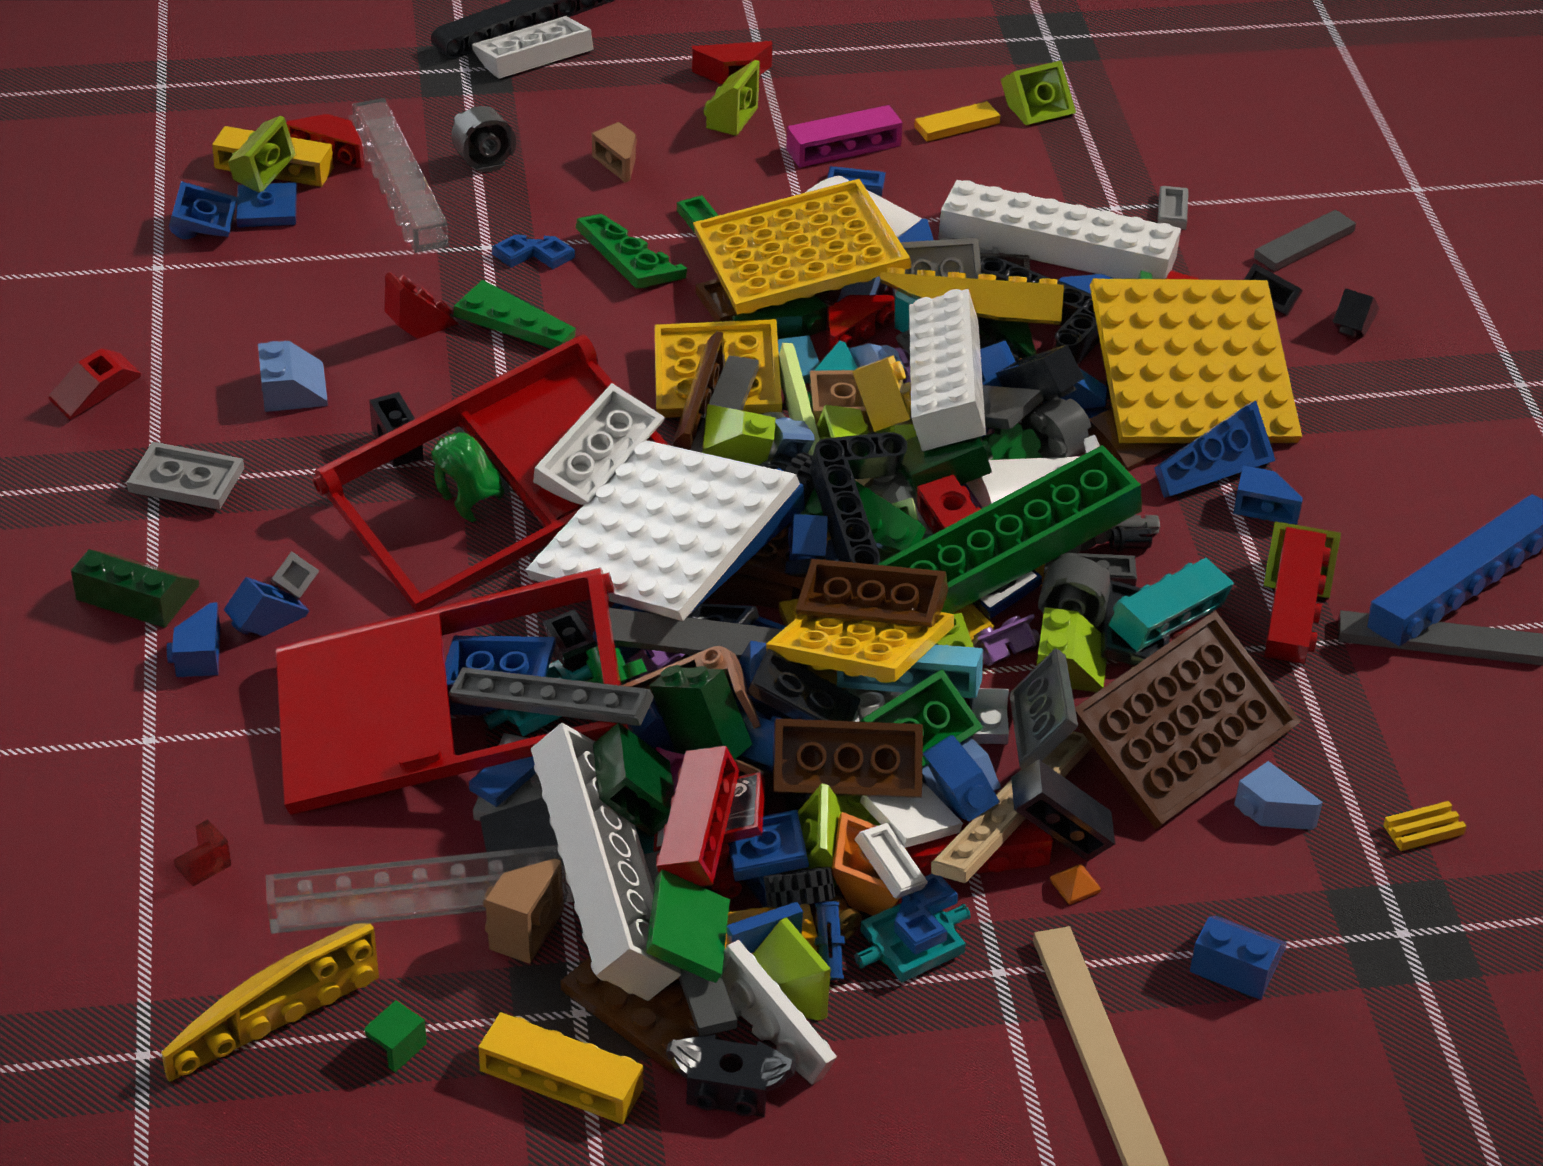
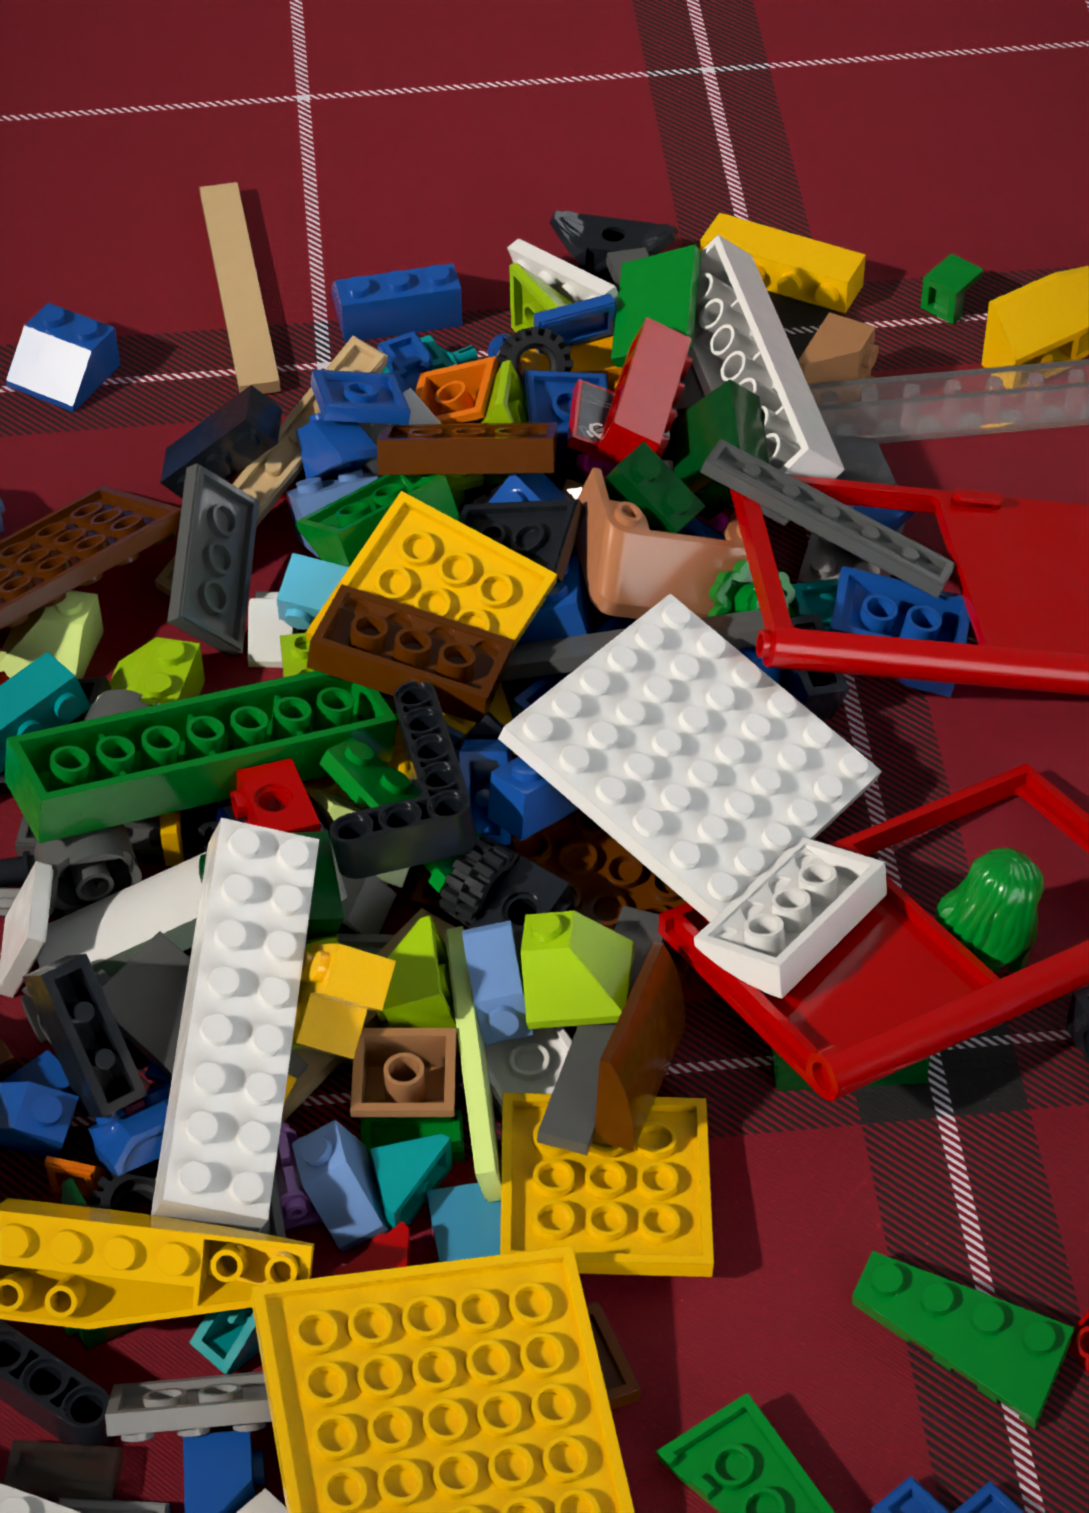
camera: 175 degrees left, 5 degrees up
(891, 860) = (431, 384): white tile -> none
(941, 1024) = (398, 302): none -> blue slope
(947, 803) = (359, 397): none -> blue plate

